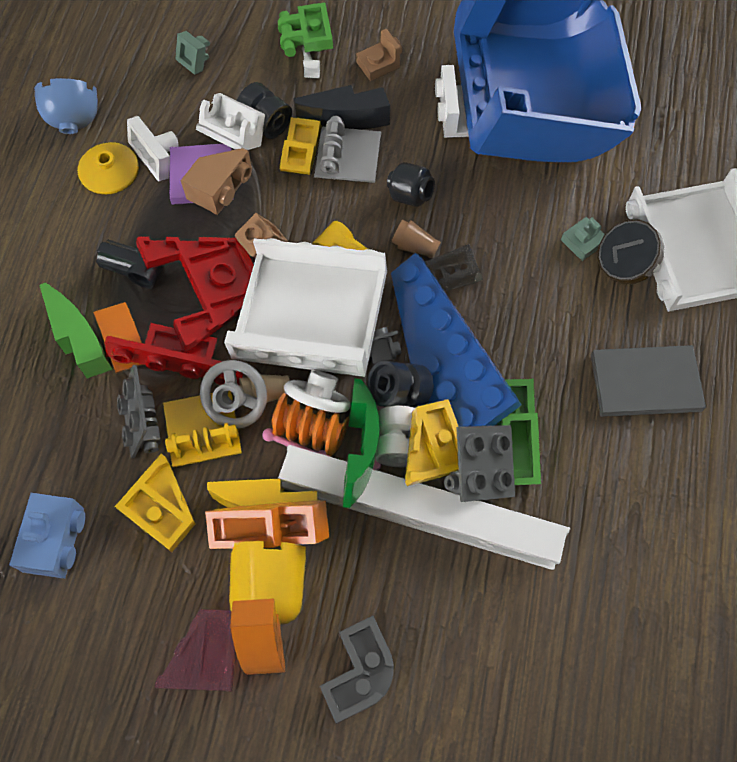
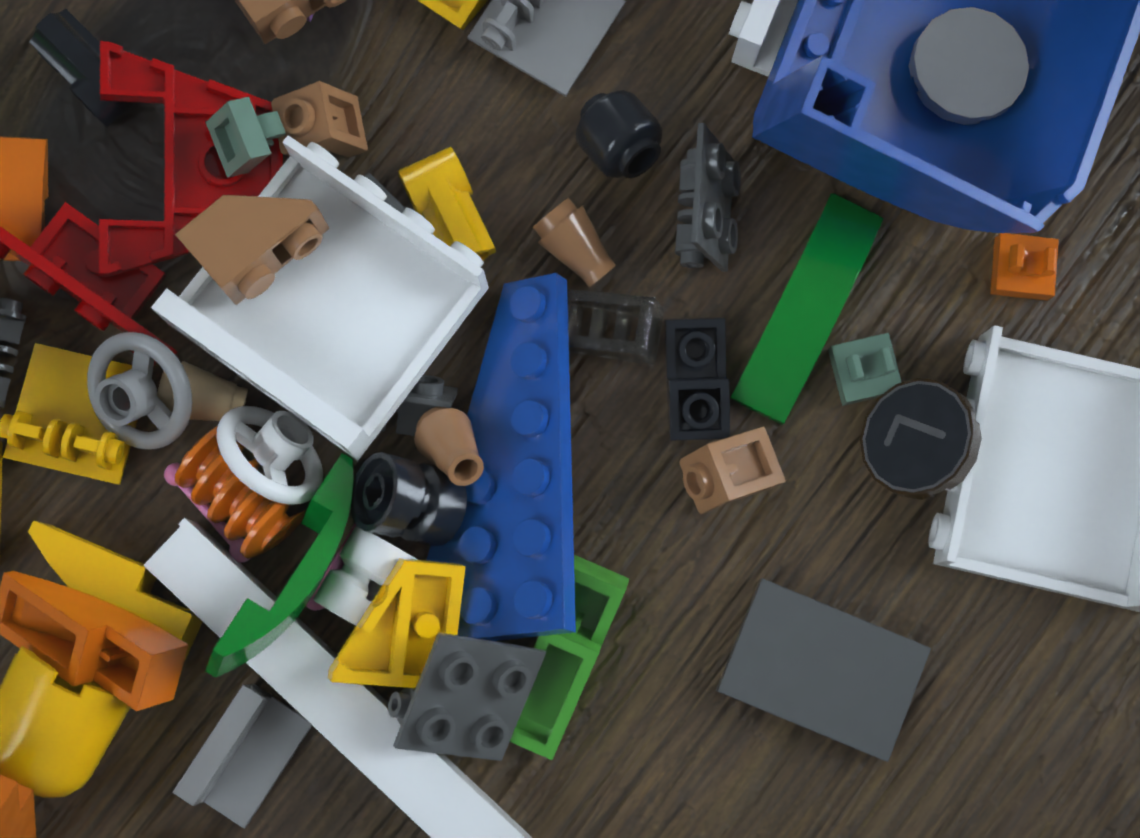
camera: 20 degrees right, 15 degrees up
(229, 252) = (242, 136): none -> sand green tile
(257, 292) = (252, 238): none -> medium nougat slope
(378, 559) = (244, 755): none -> light grey panel
(407, 349) = (449, 443): none -> medium nougat cone
(469, 196) = (707, 184): none -> dark grey hinge
(506, 276) = (697, 378): none -> black slope
(543, 226) = (807, 309): none -> green slope
(547, 308) = (731, 469): none -> medium nougat bracket
(555, 90) = (969, 65): none -> light grey tile
(629, 165) = (1024, 266): none -> orange tile

